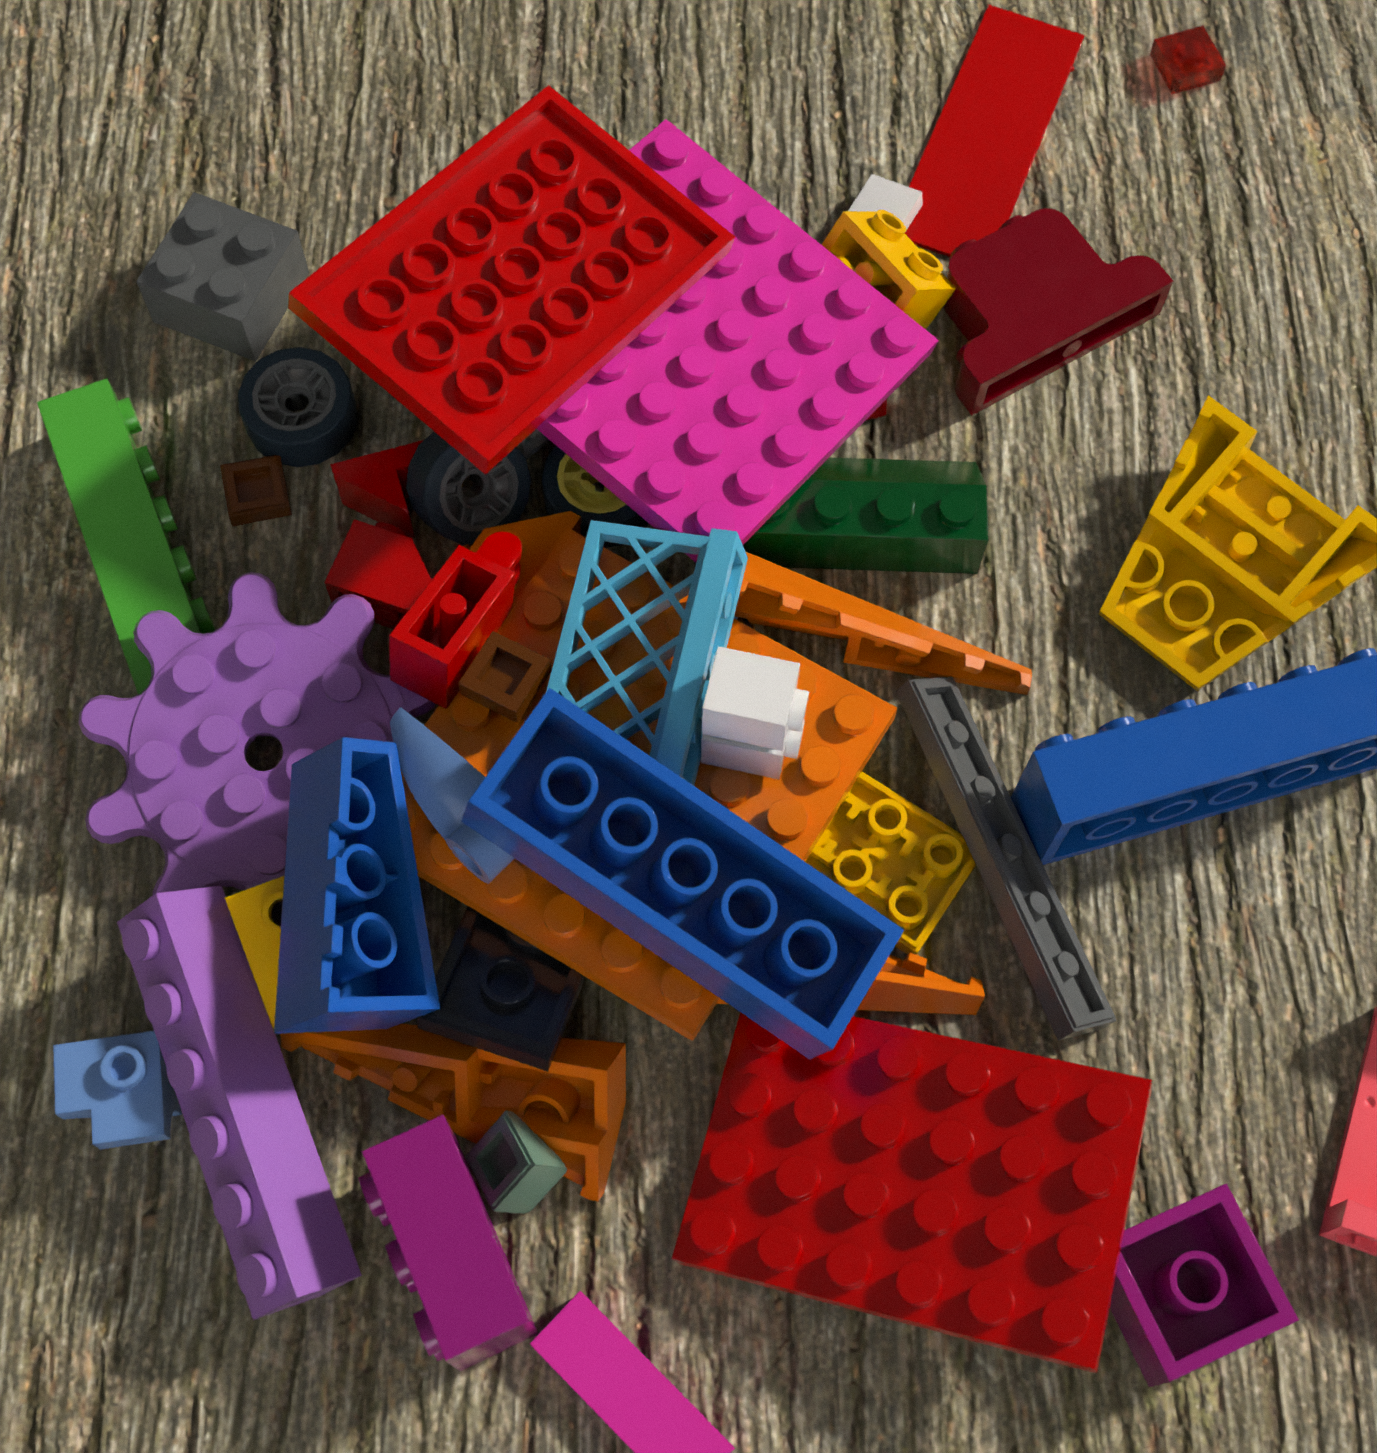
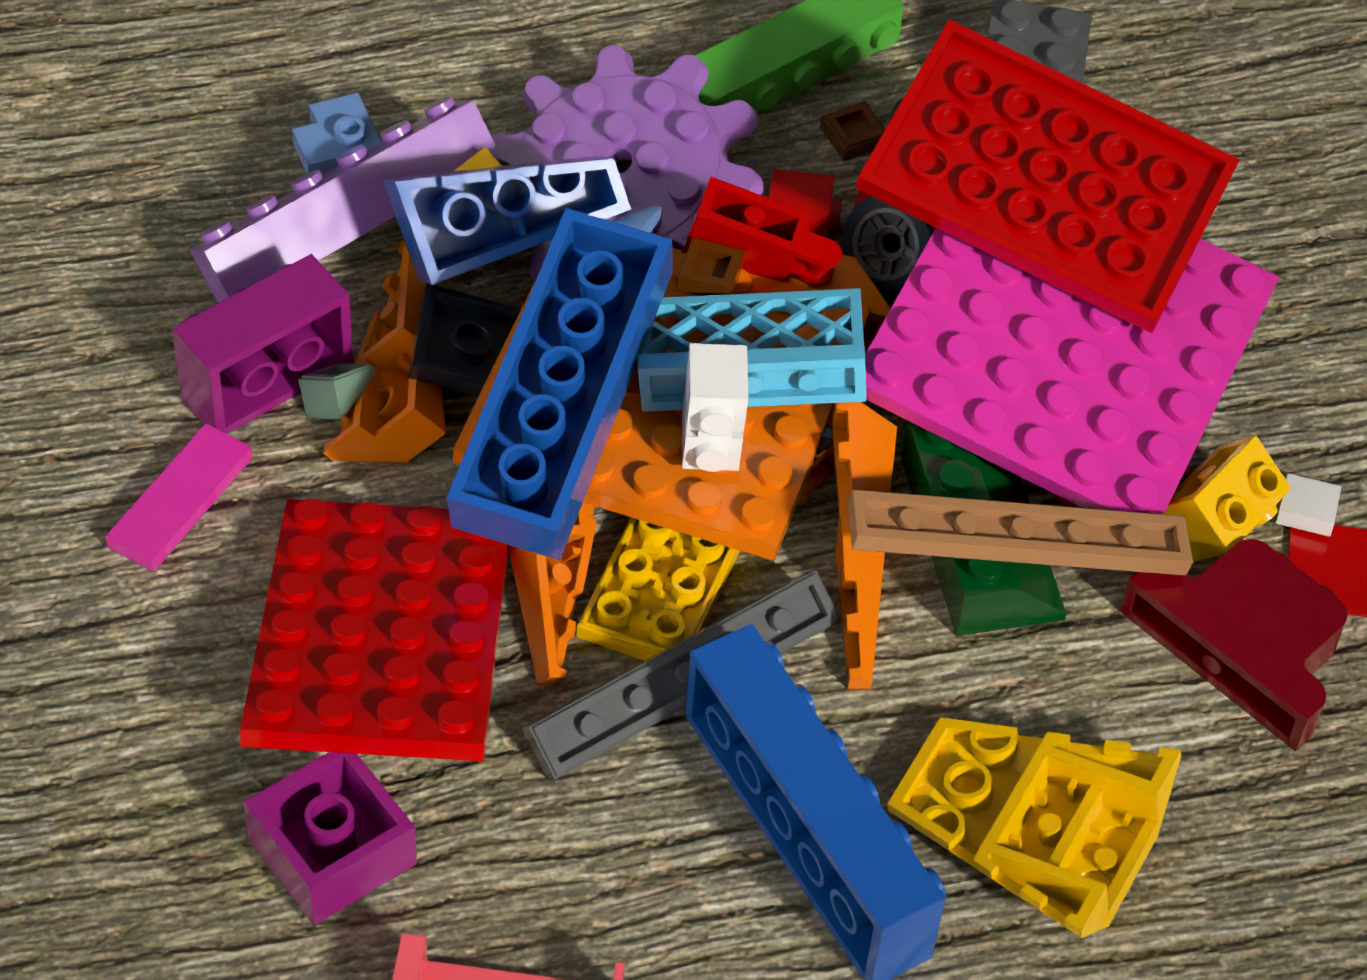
camera: 75 degrees right, 15 degrees down
(941, 466) = (1018, 532): none -> medium nougat plate

